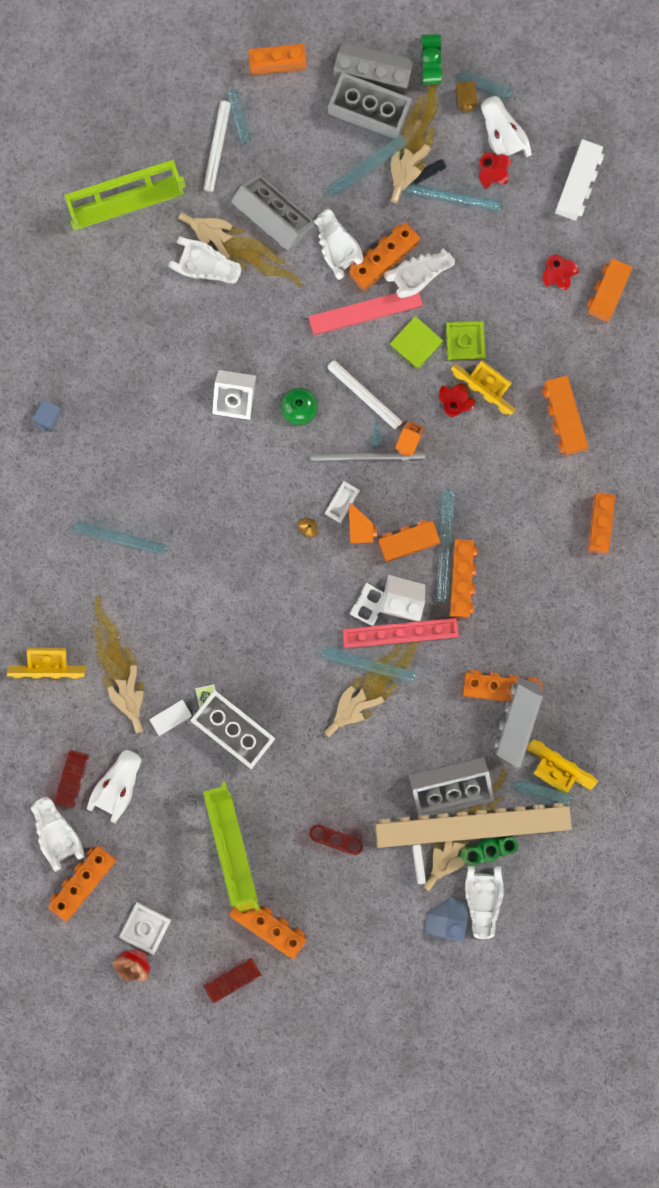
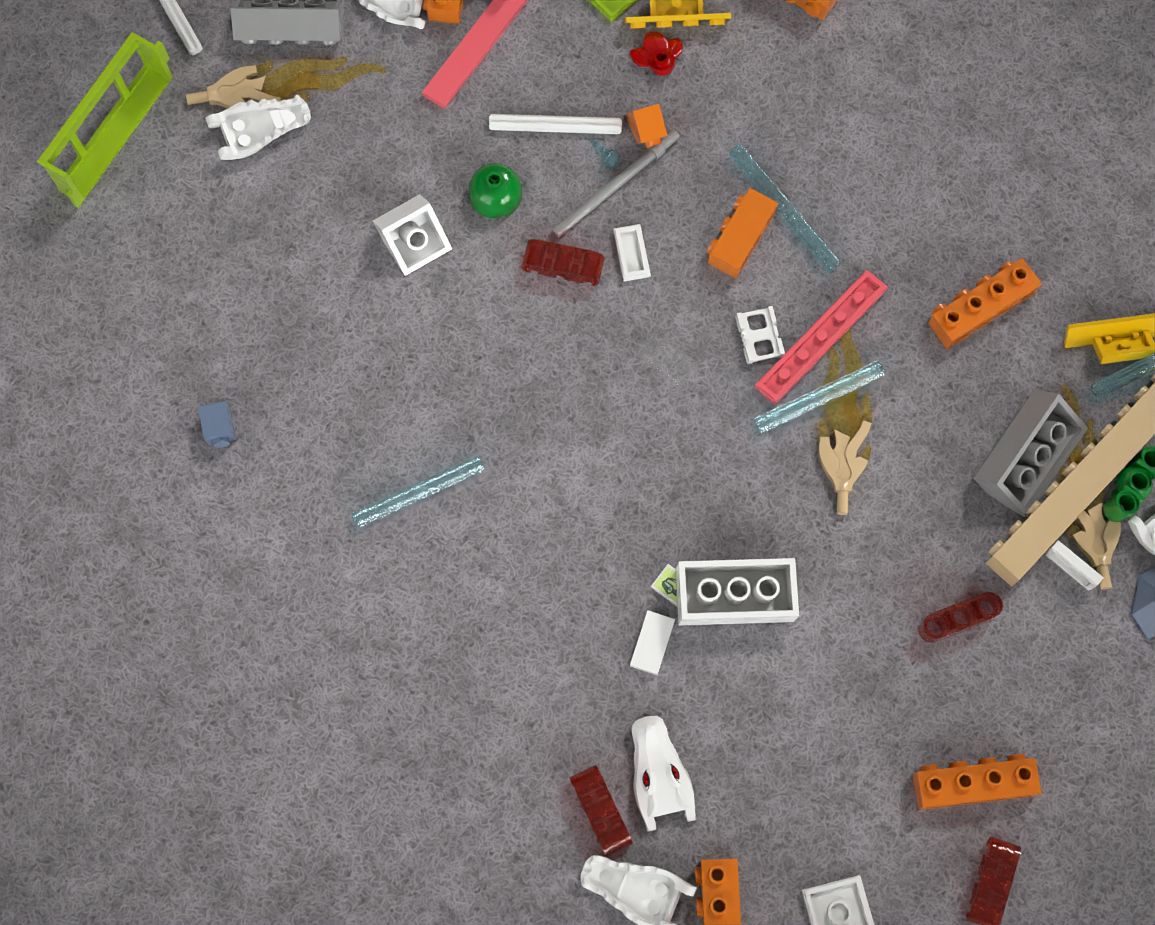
camera: 40 degrees left, 10 degrees down
(46, 663) = (454, 701): yellow bracket -> none
(124, 674) = (555, 640): piece -> none
(231, 848) = (861, 727): lime piece -> none
(301, 478) = (564, 261): none -> clear red beam
(308, 527) = (619, 307): pearl gold plant -> none
(360, 526) = (674, 257): orange slope -> none
(403, 598) = (793, 297): white slope -> none
(416, 342) = (562, 29): lime tile -> none
(461, 579) = (835, 224): orange brick -> none
(519, 721) = (1040, 314): light grey slope -> none
(601, 523) = (925, 51): orange brick -> none

